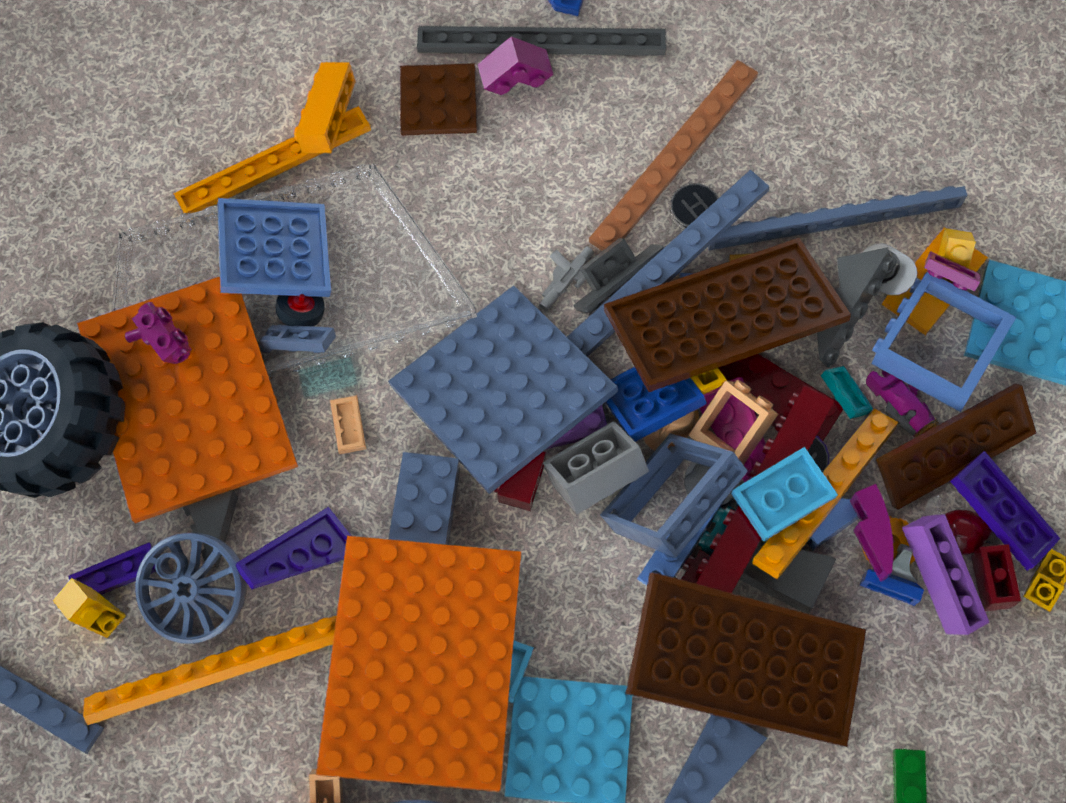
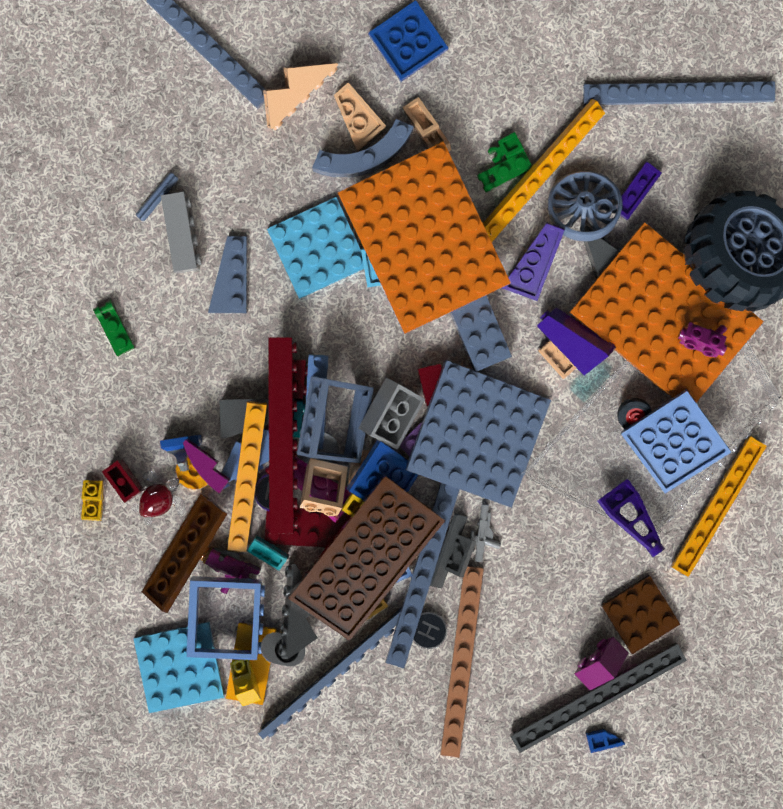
camera: 150 degrees right, 20 degrees up
(88, 608) = (636, 159): yellow slope -> none
(234, 726) = (508, 146): none -> green plate
(261, 697) = (505, 171): none -> green plate
(297, 338) = (621, 391): sand blue plate -> none
(312, 429) = (575, 340): none -> dark purple slope
(325, 107) = (708, 561): light orange brick -> none
(383, 225) = (624, 494): none -> dark purple plate
(746, 660) = (240, 343): reddish brown plate -> none
(784, 494) = (268, 453): medium azure plate -> none
(945, 575) = (152, 463): medium lavender brick -> none
(961, 276) = (240, 666): magenta plate -> none
(1005, 510) = (136, 526): dark purple plate -> none

